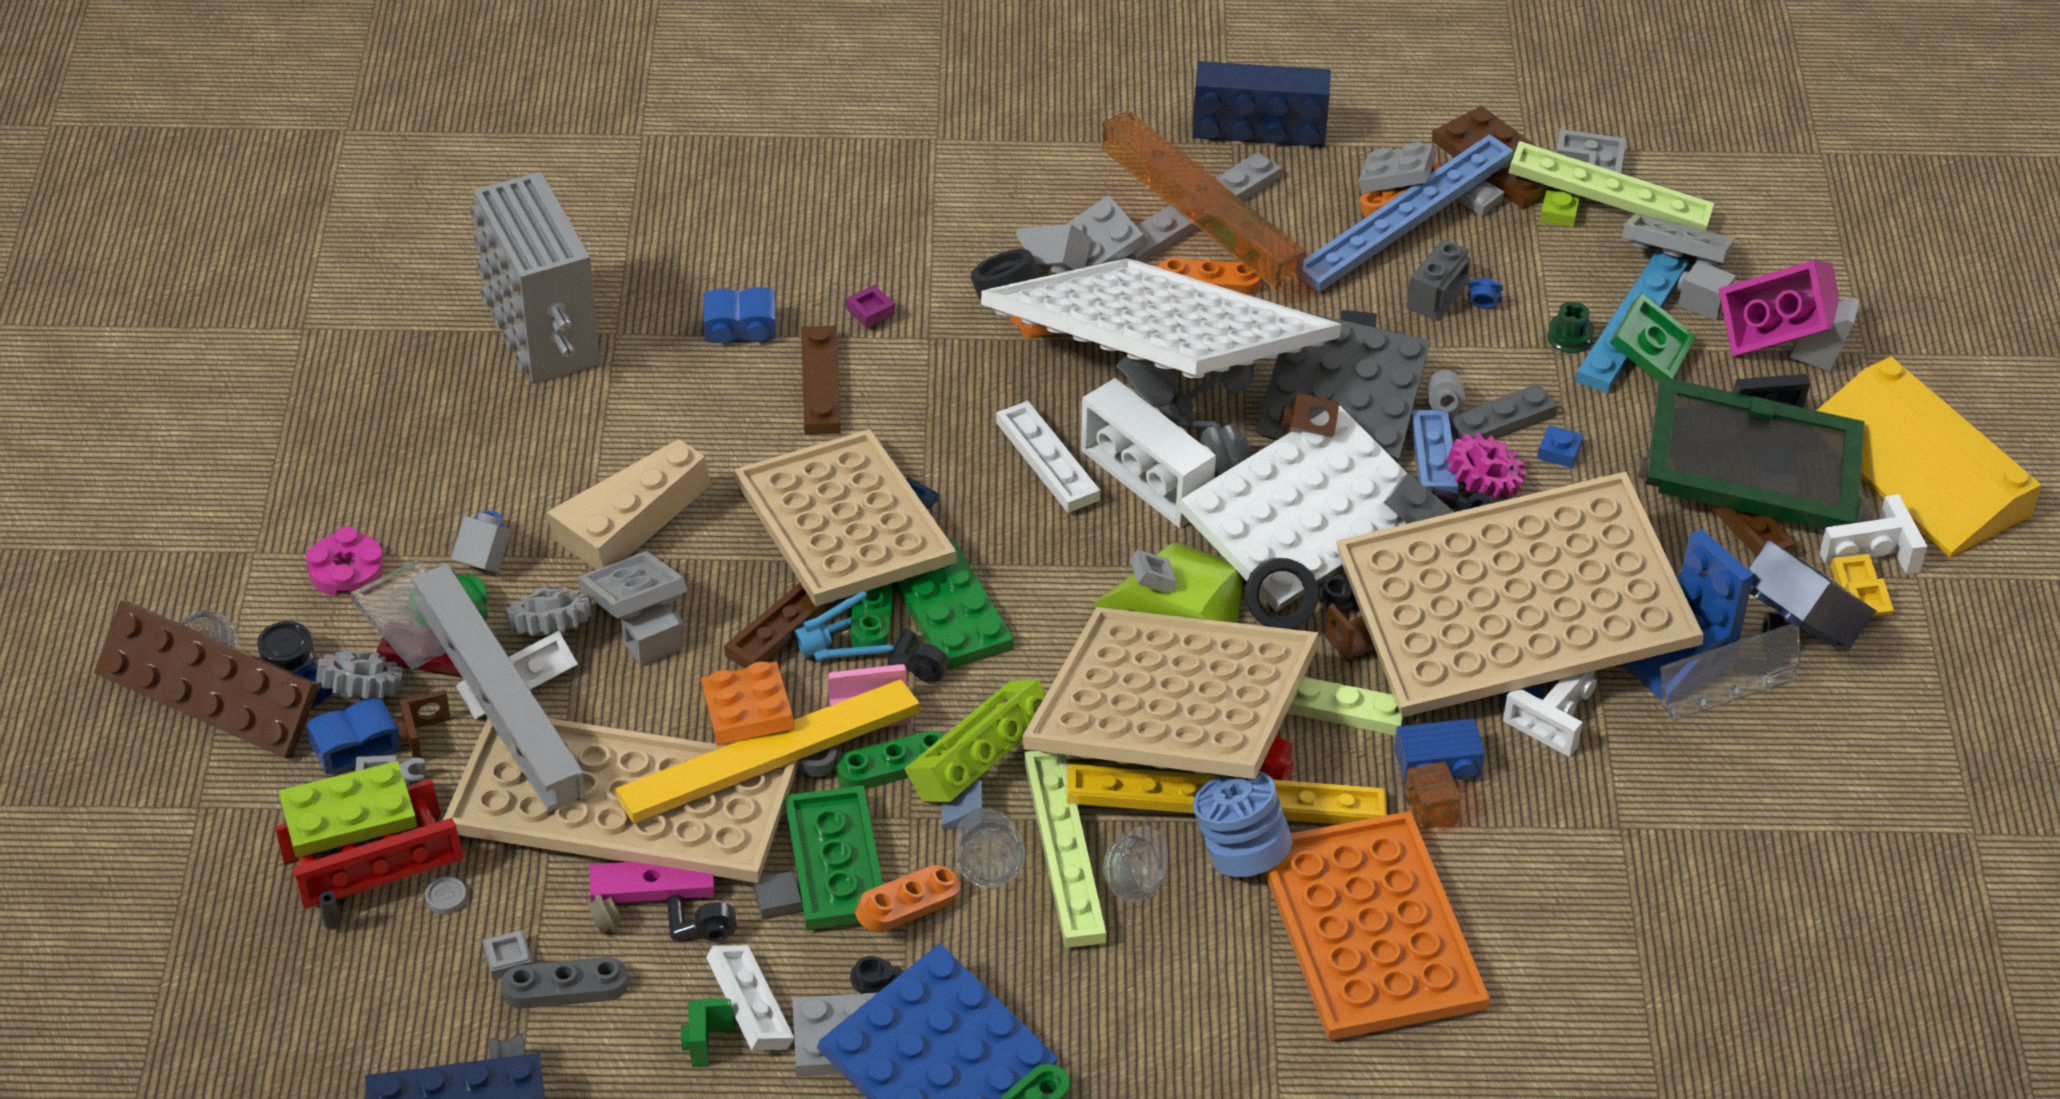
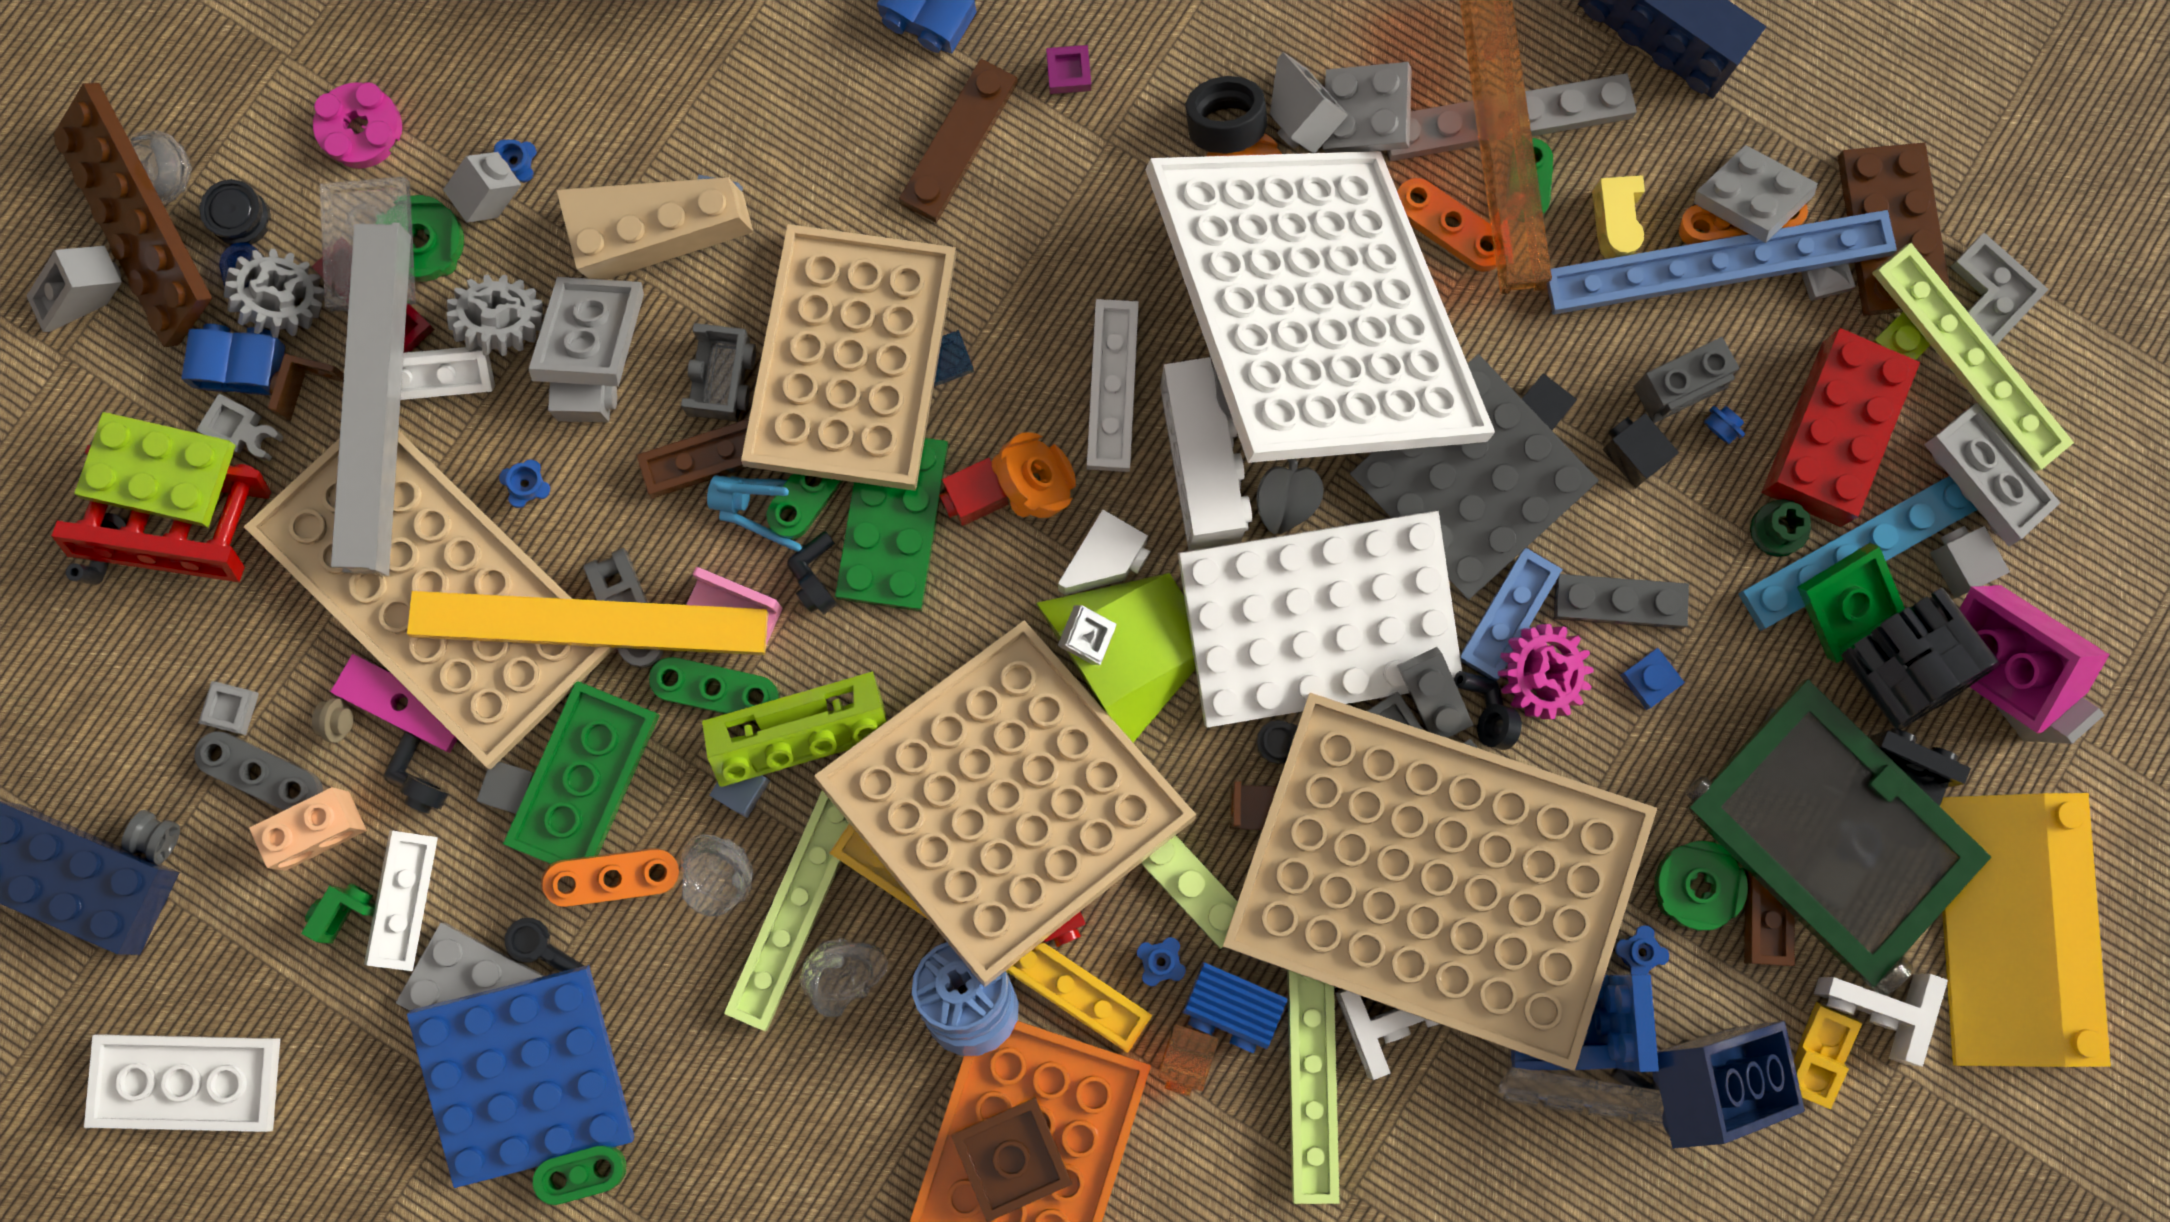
camera: 30 degrees right, 35 degrees up
(181, 750) = (73, 285): none -> light grey slope
(445, 895) = (217, 601): light grey piece -> none
(638, 986) = (307, 829): none -> light nougat brick
(646, 705) = (516, 474): none -> blue plate
(747, 573) = (719, 373): none -> dark grey window
(747, 702) = (607, 548): orange plate -> none
(998, 554) = (973, 493): none -> red brick
(1044, 524) = (1015, 471): none -> orange plate
(1120, 538) = (1105, 555): none -> white slope
(1296, 416) = (1379, 506): reddish brown bracket -> none
(1308, 581) = (1195, 745): black tyre -> none
(1316, 221) = (1615, 215): none -> light yellow leg
(1358, 904) = (1011, 1159): none -> reddish brown plate
(1364, 756) = (1152, 971): none -> blue plate
(1443, 326) = (1639, 449): none -> black brick
(1446, 392) = (1578, 544): light grey brick -> none
(1536, 771) = (1312, 1091): none -> yellowish green plate
(1560, 257) = (1841, 427): none -> red brick
(1687, 518) = (1720, 870): none -> green plate
(1727, 336) = (1920, 659): none -> black piece

